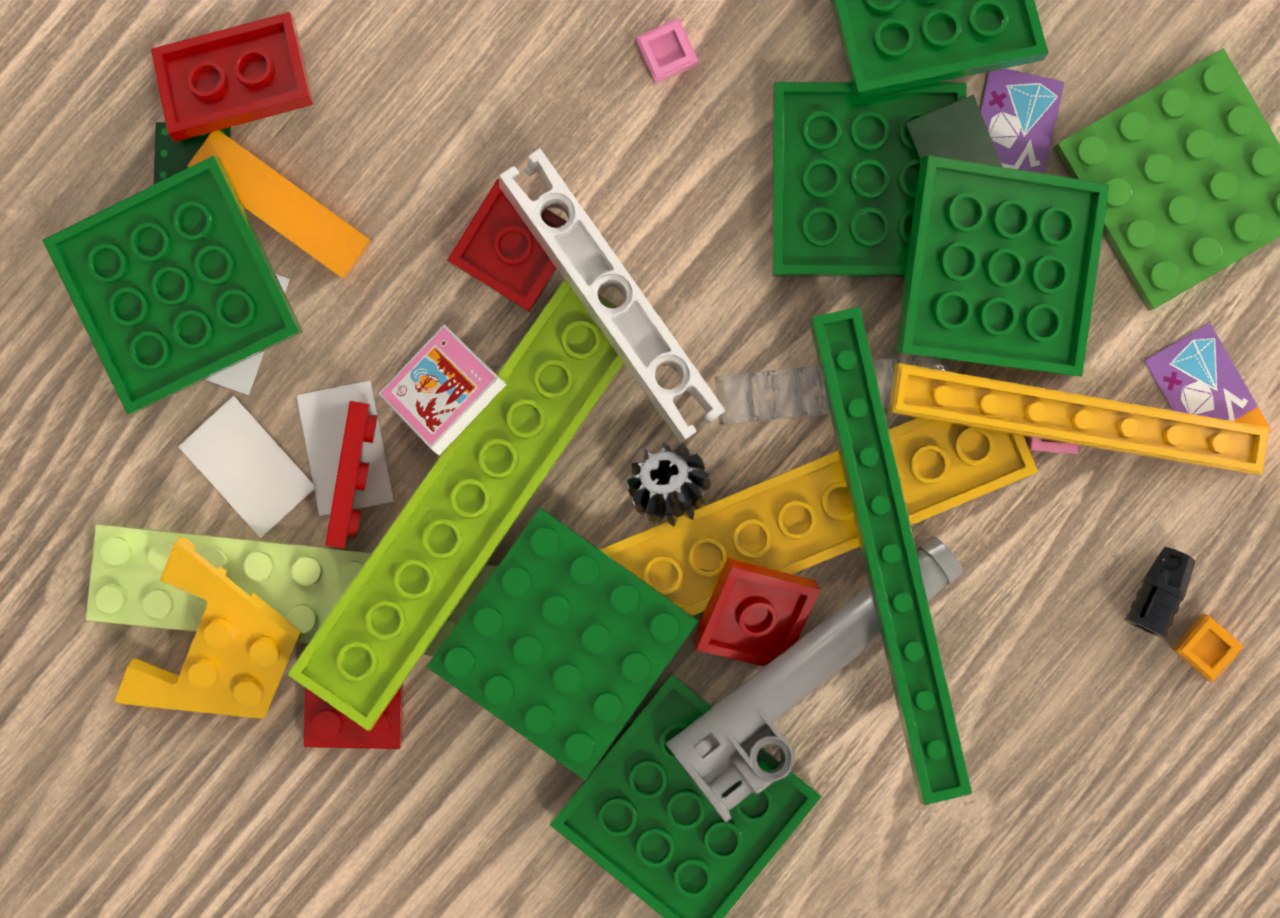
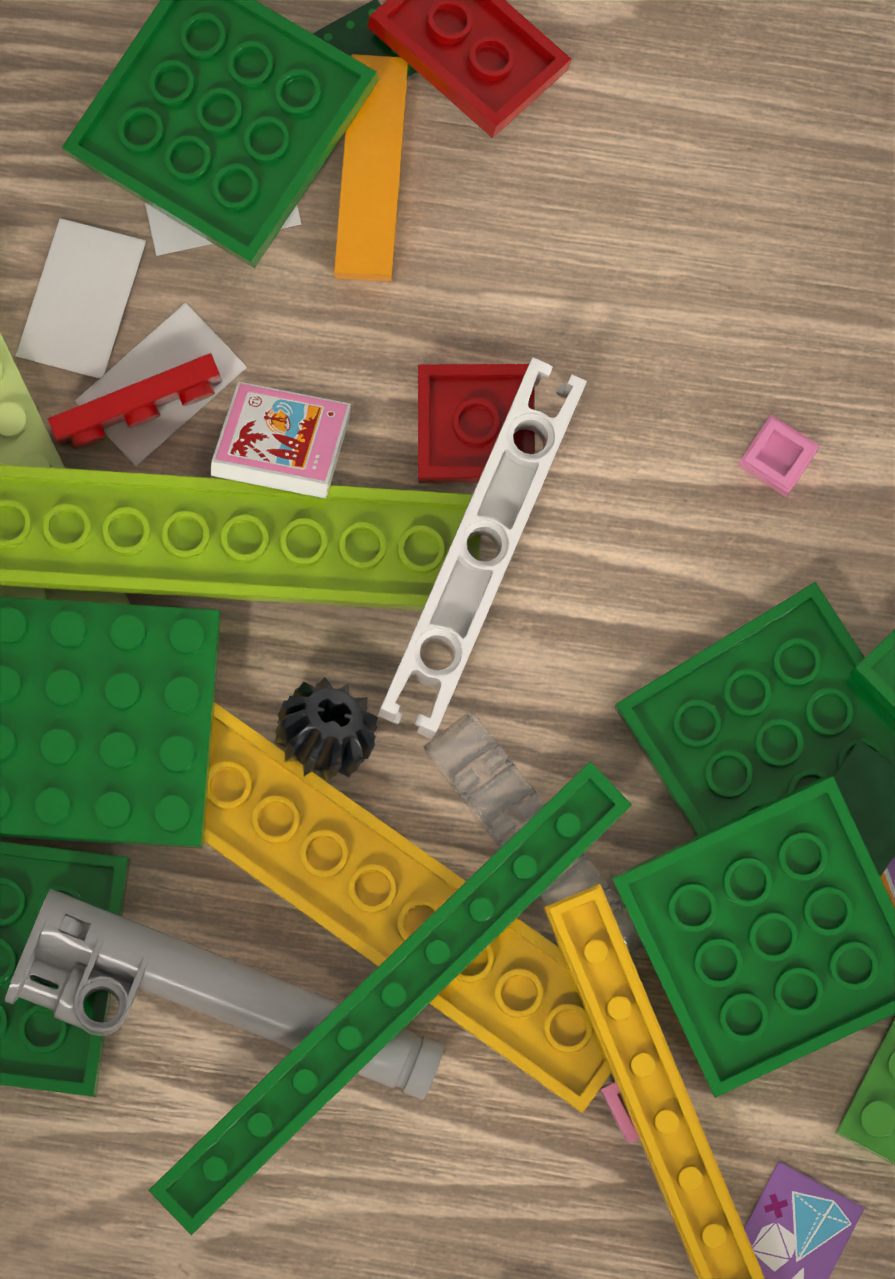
camera: 65 degrees right, 10 degrees down
(755, 613) = (246, 901): red plate -> none

